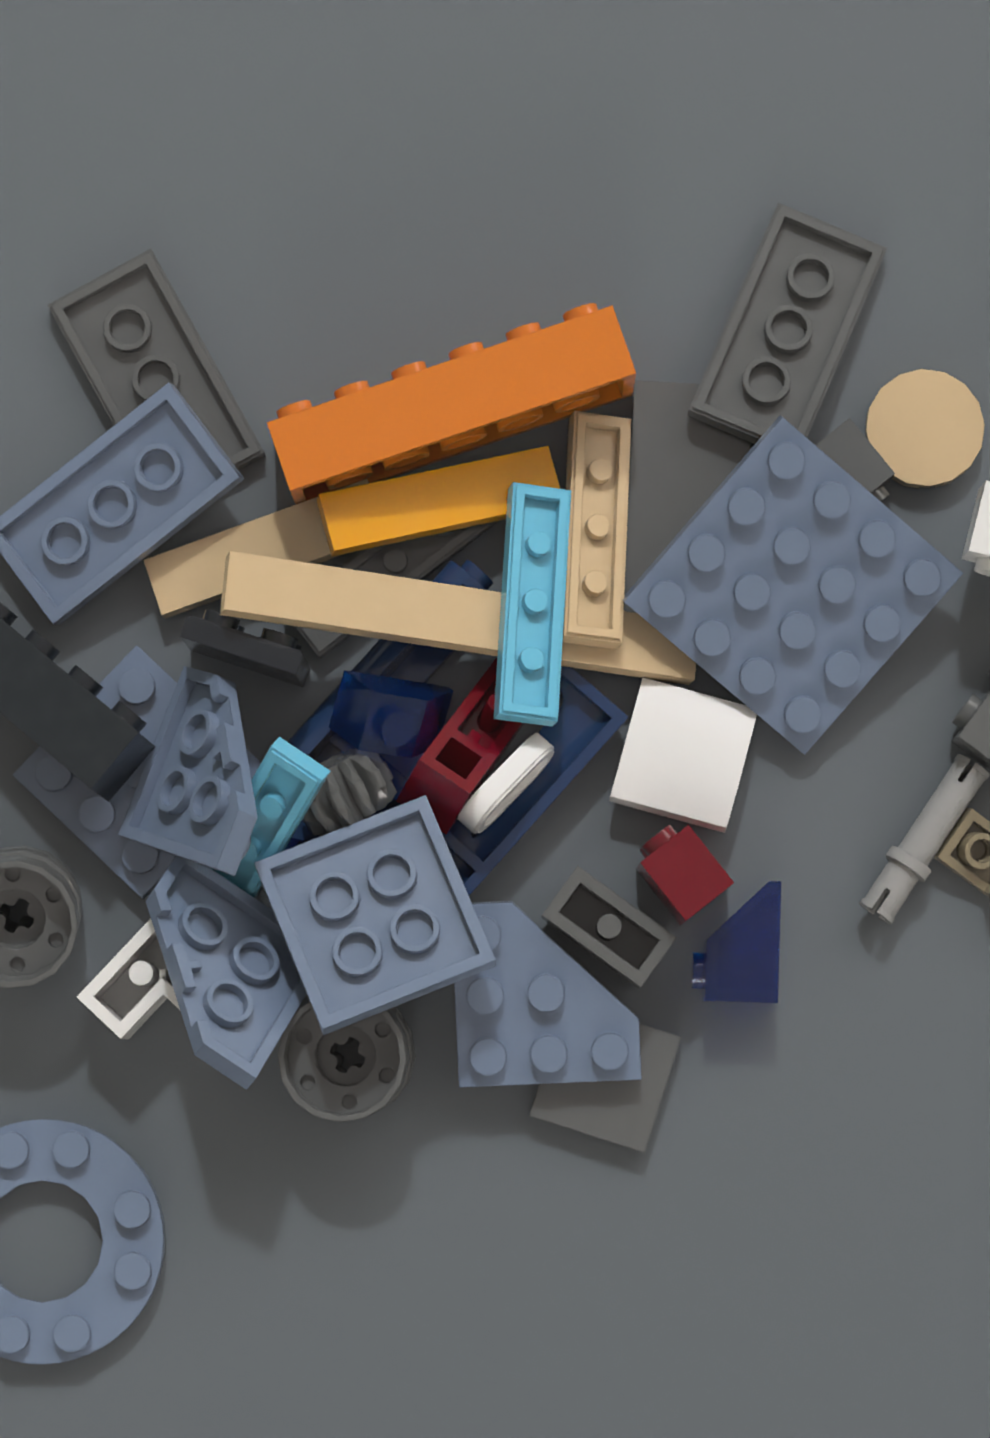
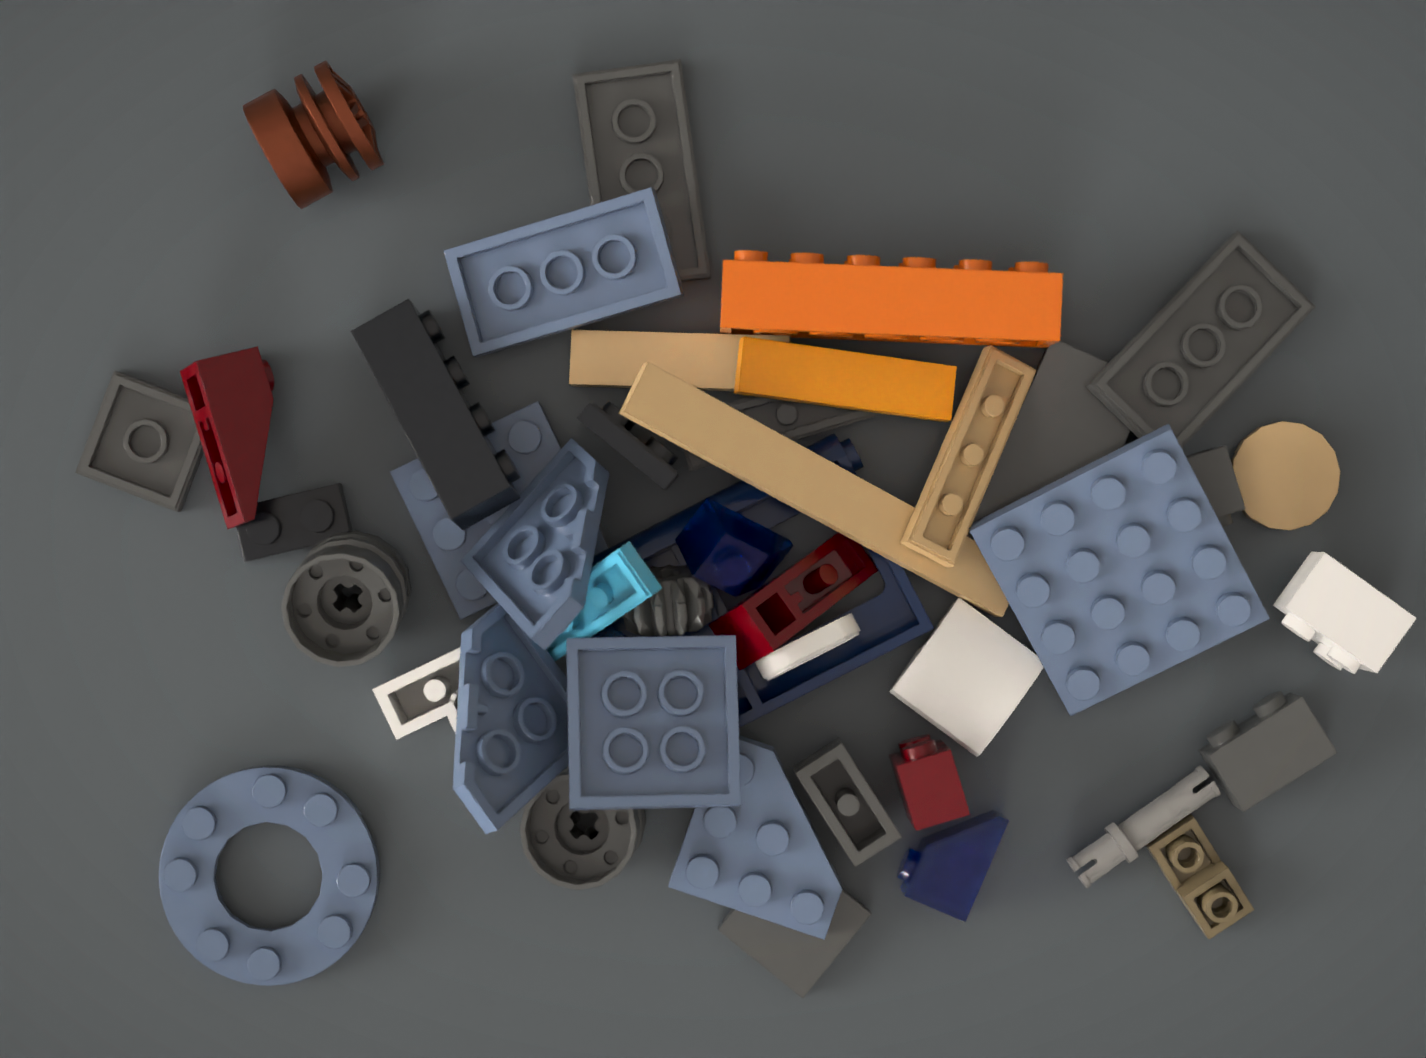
camera: 15 degrees right, 5 degrees up
(532, 604) = (890, 503): medium azure tile -> none

